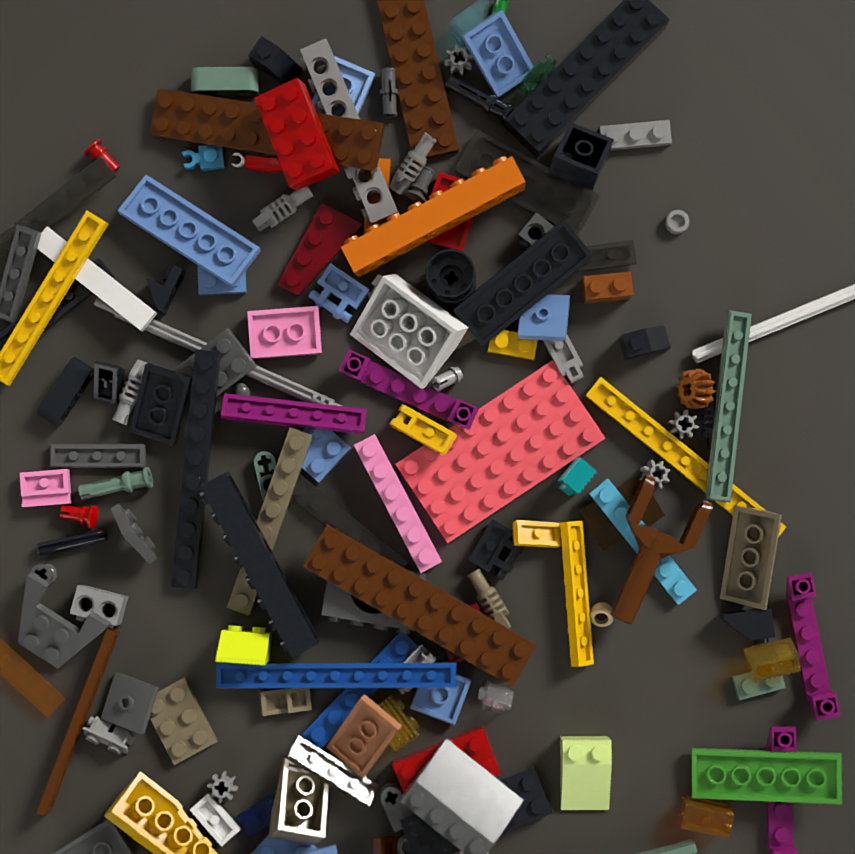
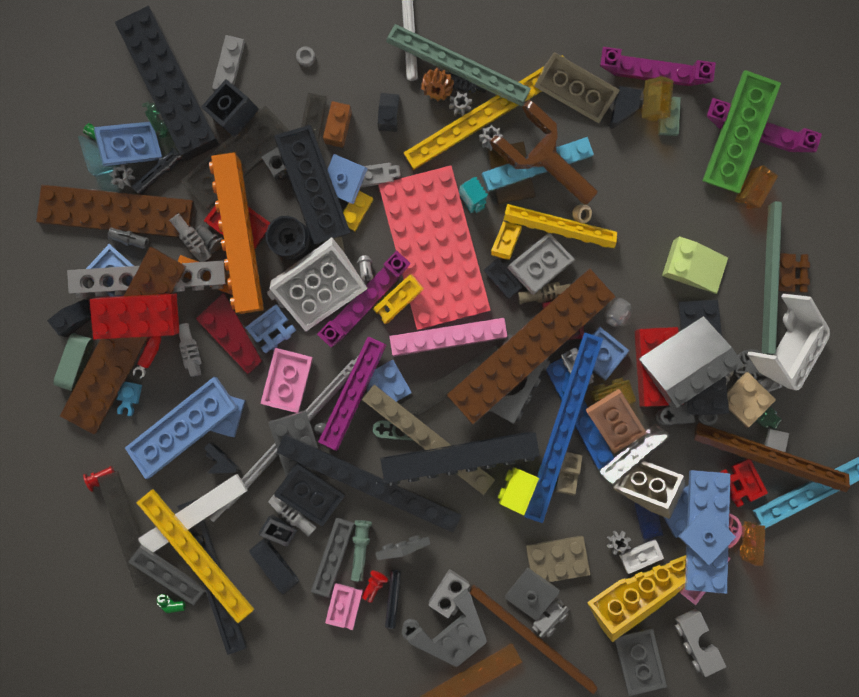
camera: 75 degrees left, 0 degrees up
(523, 584) = (541, 263): none -> light grey tile

